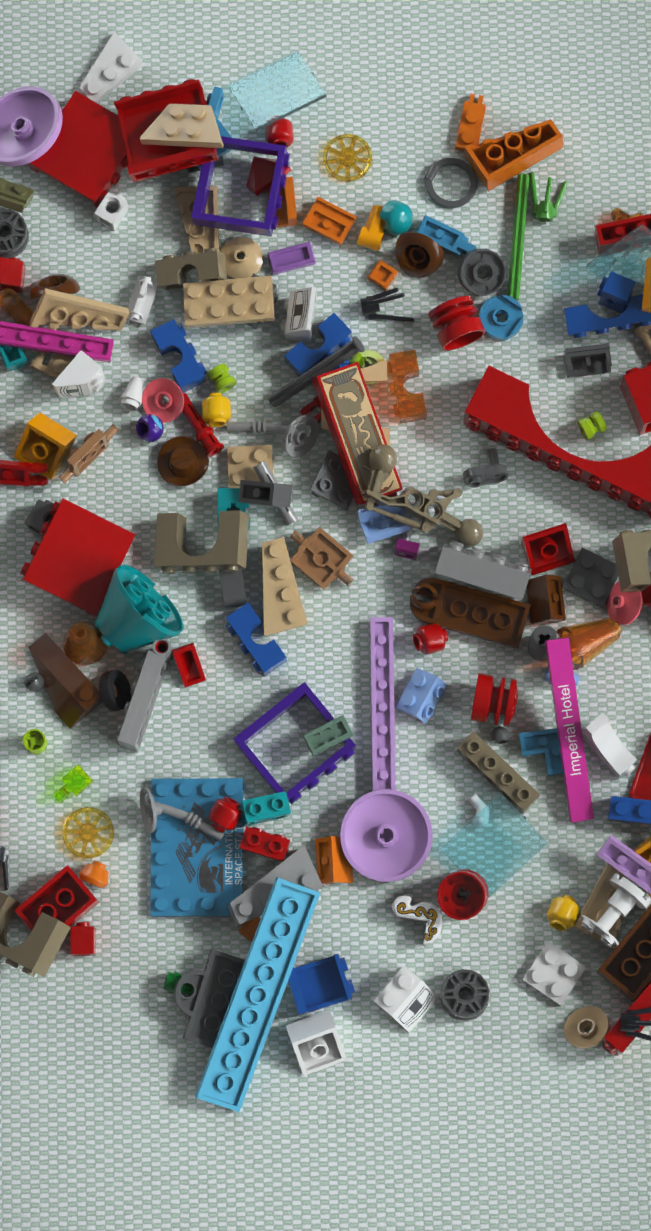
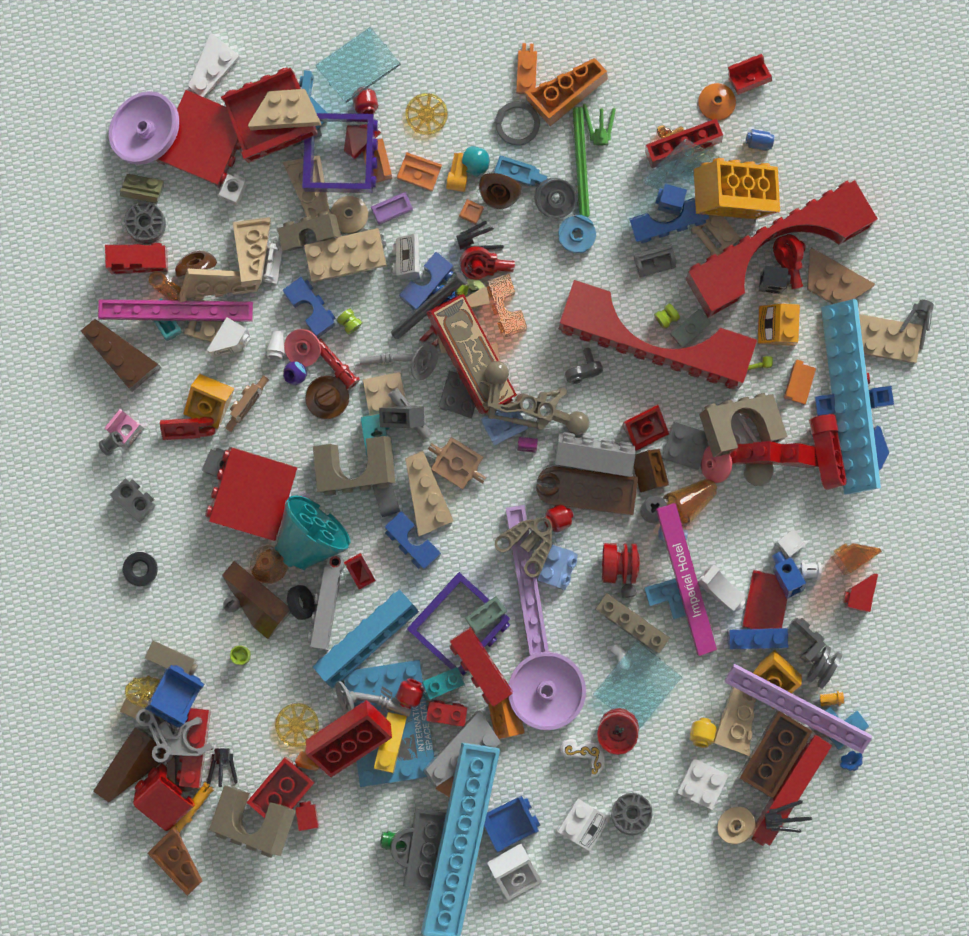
camera: 15 degrees left, 5 degrees up
(75, 782) = (279, 684): clear neon green plate -> none
(122, 277) = (251, 247): none -> tan wing
(145, 854) = (348, 738): none -> red brick
(184, 743) = (365, 638): none -> dark azure brick
(193, 869) = (388, 752): none -> yellow slope
(216, 410) = (349, 349): yellow head -> none
(313, 794) = (481, 666): none -> red brick
(378, 647) = (515, 533): none -> dark tan connector
(386, 334) = (483, 263): none -> red pin
(456, 323) = (539, 243): red wheel -> none
(618, 443) = (690, 328): none -> sand green plate
(620, 904) = (750, 720): white piece -> none

